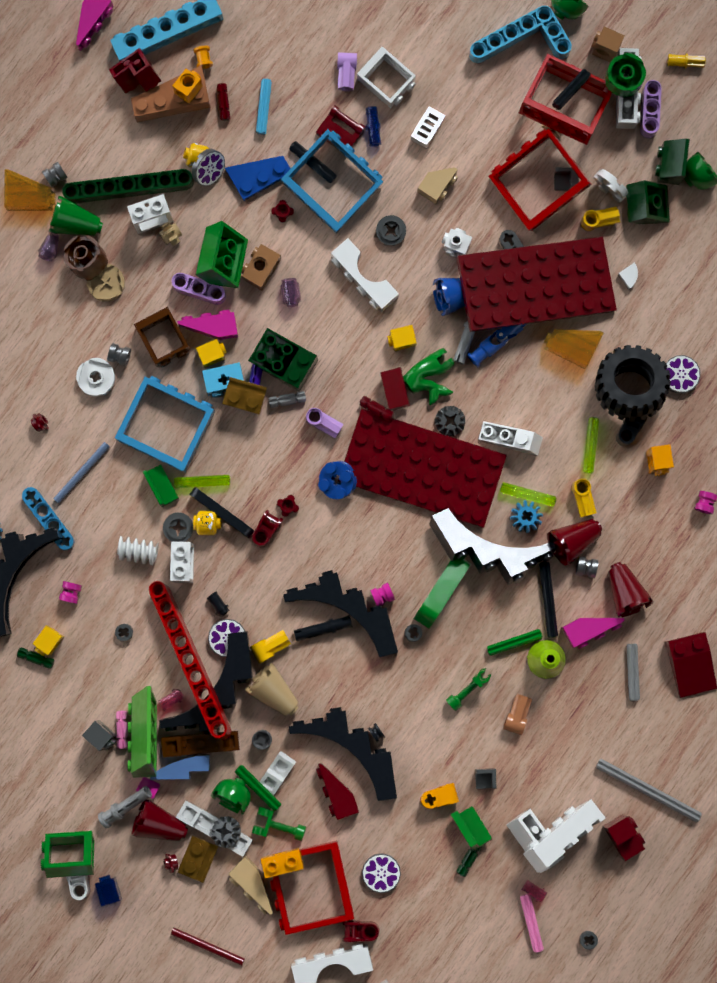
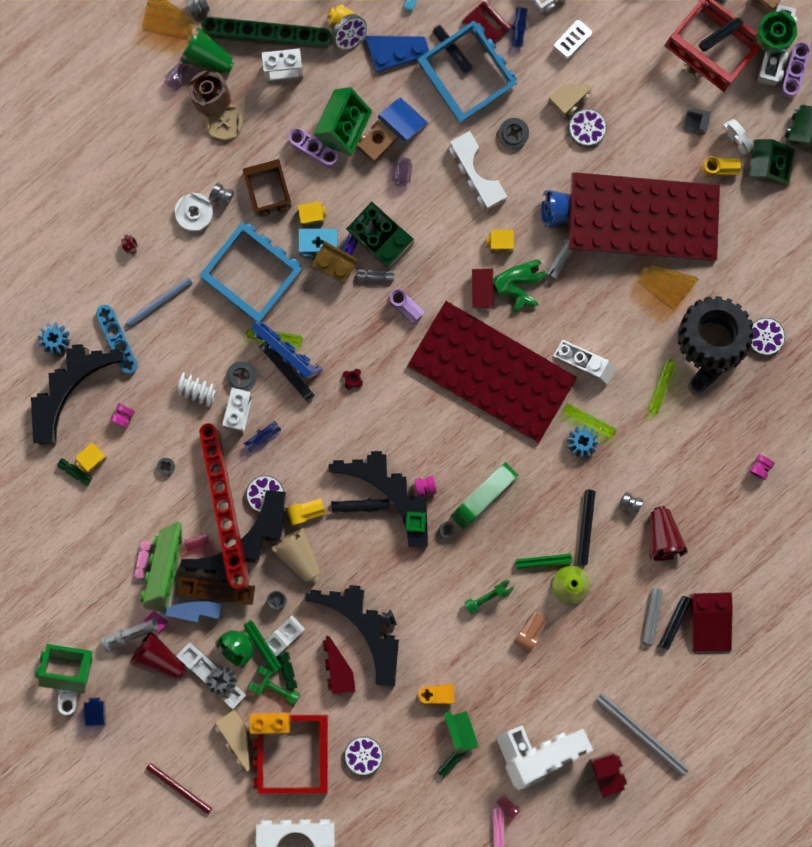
camera: 10 degrees right, 0 degrees up
(100, 736) = (120, 561): dark grey brick -> none
(161, 485) = (233, 331): green panel -> none
(170, 233) = (298, 88): tan gear -> none
(170, 863) = (161, 699): dark red plate -> none
(197, 859) = (188, 702): pearl gold plate -> none
(206, 523) = (270, 378): yellow head -> none
(212, 581) = (262, 436): none -> clear blue pin
(217, 326) = (321, 188): dark pink slope -> none
(217, 492) = (286, 349): none -> blue wing
(218, 604) = (263, 459): black pin -> none
(267, 528) = (328, 396): dark red piece -> none
(279, 241) = (402, 119): none -> blue slope
(282, 205) = (411, 95): dark red plate -> none
(288, 806) = (288, 671): none -> dark green axle
(327, 482) = (396, 364): blue plate -> none
(358, 931) = (328, 806): dark red piece -> none
(376, 408) = (460, 303): dark red axle -> none
(380, 632) = (415, 522): none -> green tile
(450, 430) = (527, 340): dark grey gear -> none
(457, 235) = (575, 165): white brick -> none
(461, 209) = (587, 127): none -> tile
(461, 542) = (534, 470): arch -> none
(485, 778) = (485, 687): dark grey panel -> none
(487, 349) = (582, 270): blue piece -> none
(514, 159) = (649, 90): red window -> none
(515, 240) = (633, 169): dark grey beam -> none
(574, 539) = (624, 474): dark red cone -> none
(584, 500) = (643, 439): yellow piece -> none
(584, 629) = (615, 563): dark pink slope -> none
(629, 275) = (737, 229): white tile -> none
(656, 673) = (675, 622): none -> black axle
(659, 459) = (725, 415): light orange brick -> none

